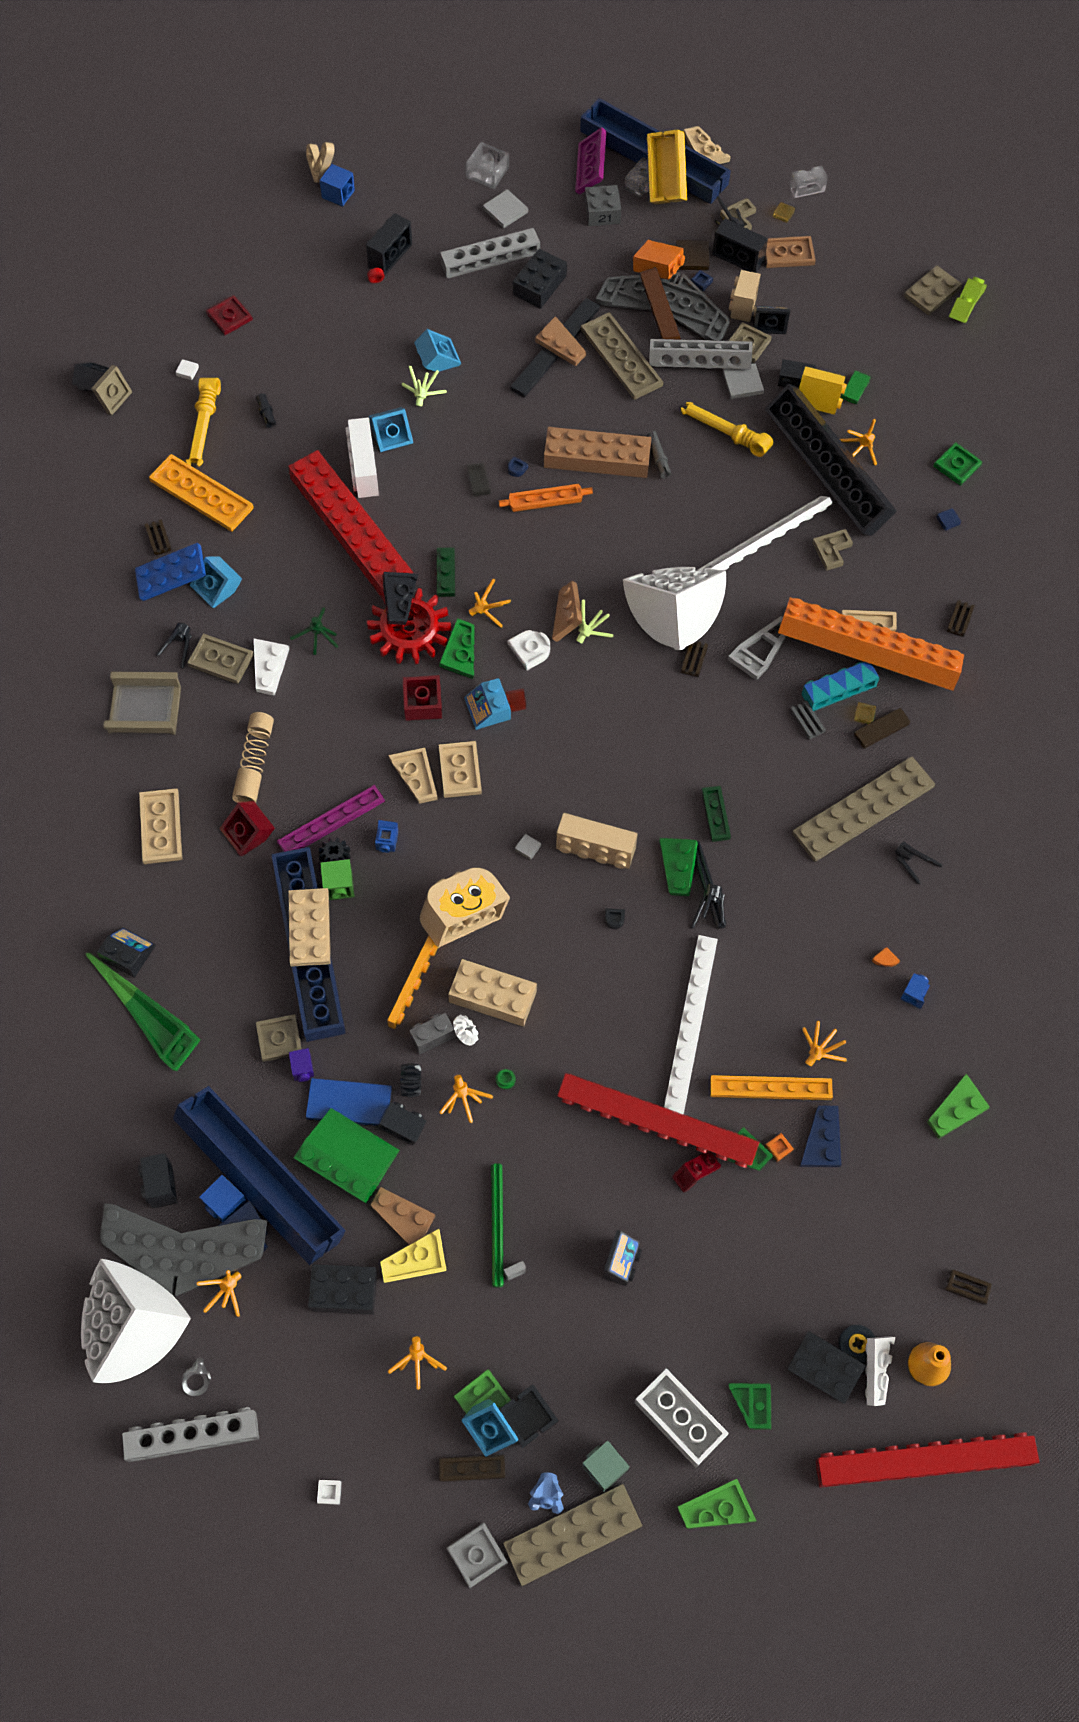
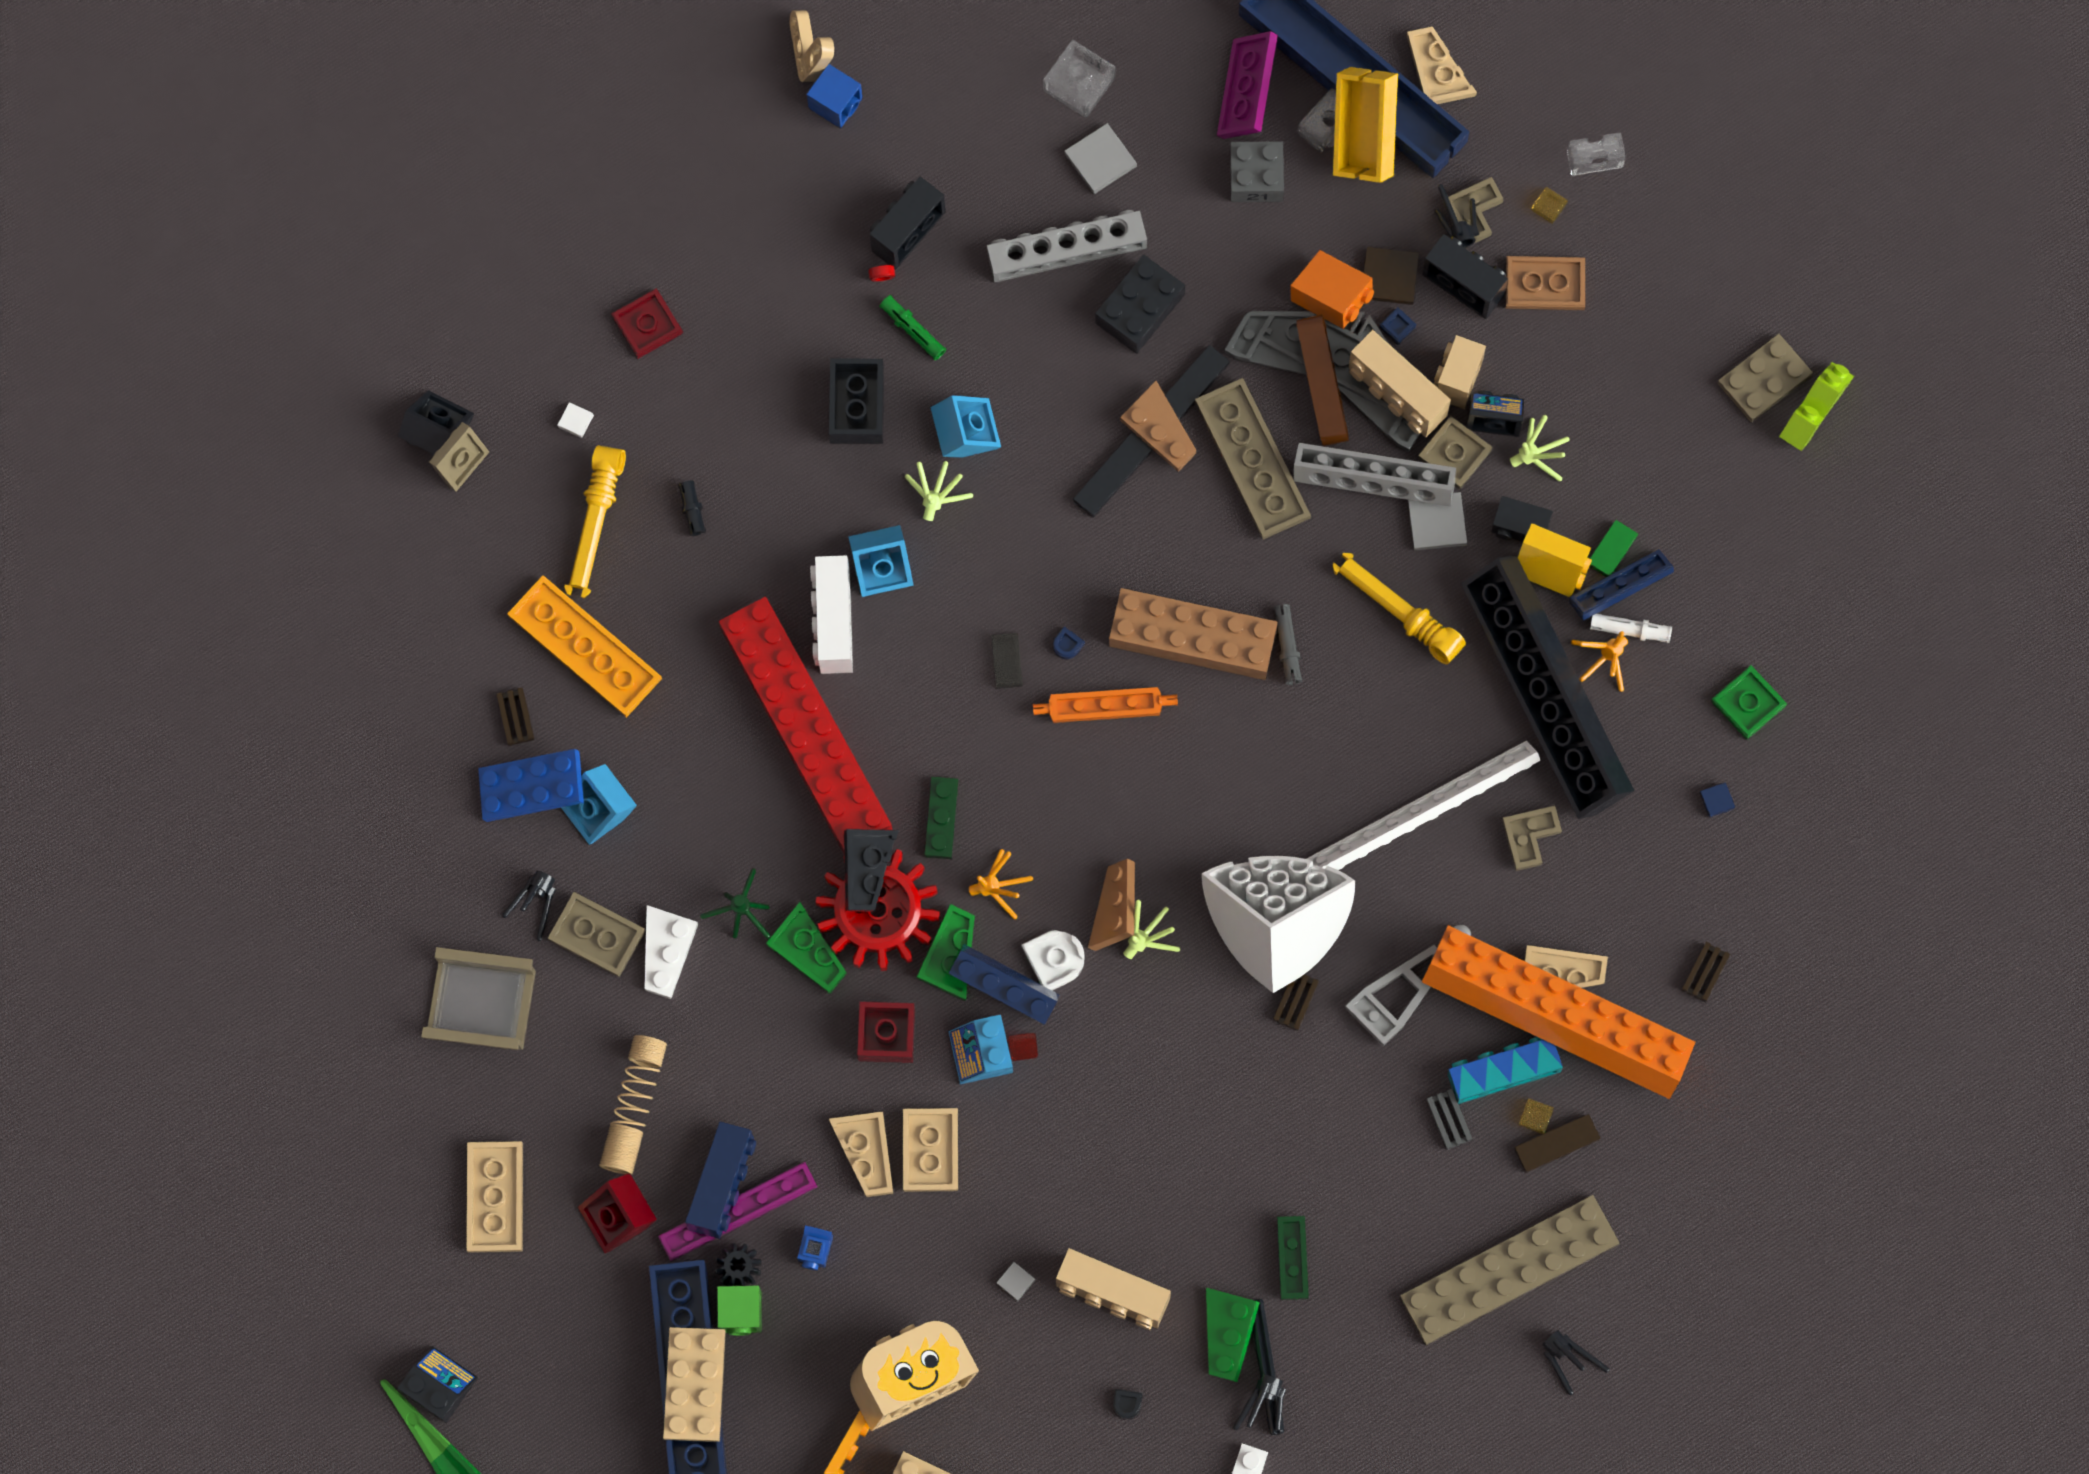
camera: 10 degrees right, 10 degrees up
(317, 799) = (720, 1180): none -> dark blue brick
(362, 655) = (806, 950): none -> green wing
(366, 341) = (856, 401): none -> black brick
(397, 302) = (904, 320): none -> green pin
(498, 660) = (1004, 984): none -> dark blue brick
(709, 300) = (1398, 384): none -> tan brick
(795, 339) = (1530, 453): none -> yellowish green plant
(865, 404) = (1621, 584): none -> dark blue tile
(880, 428) = (1639, 629): none -> white pin

